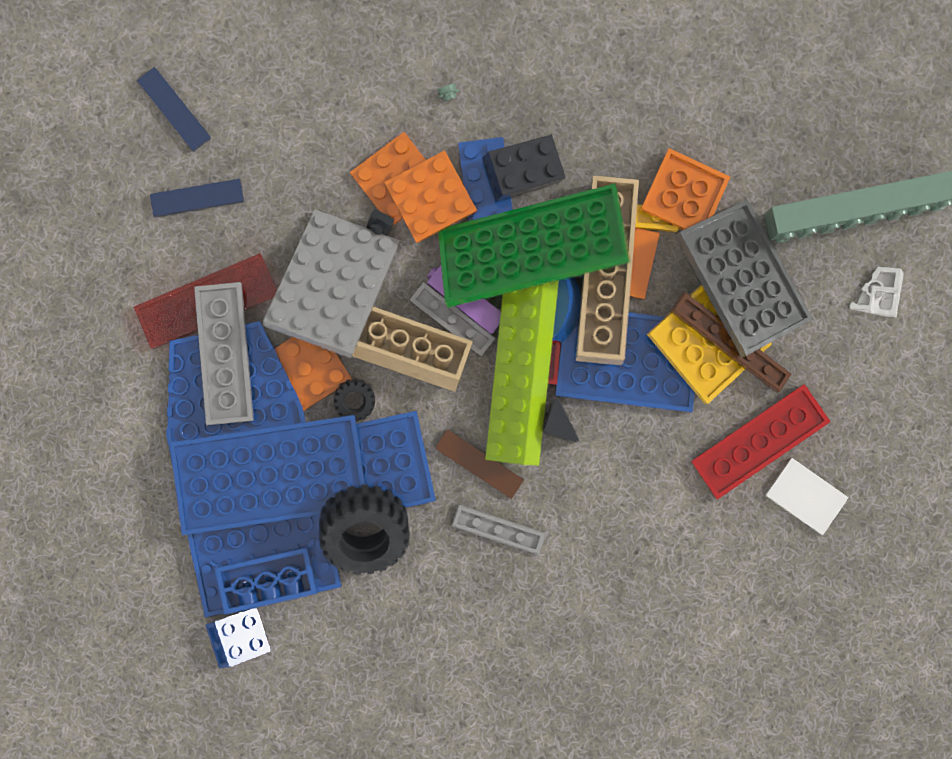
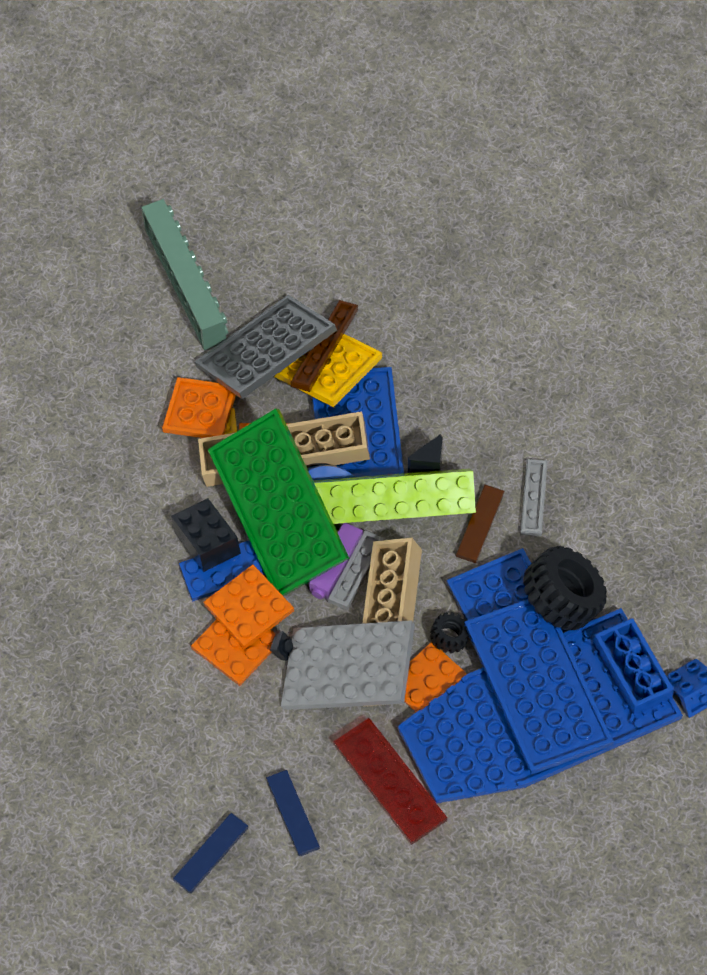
camera: 95 degrees left, 25 degrees down
(224, 353) = (436, 745): light grey plate -> none
(448, 92) = (145, 616): sand green plate -> none
(760, 441) = (403, 314): red plate -> none
(806, 496) = (440, 273): white tile -> none
(883, 286) = (247, 250): white slope -> none

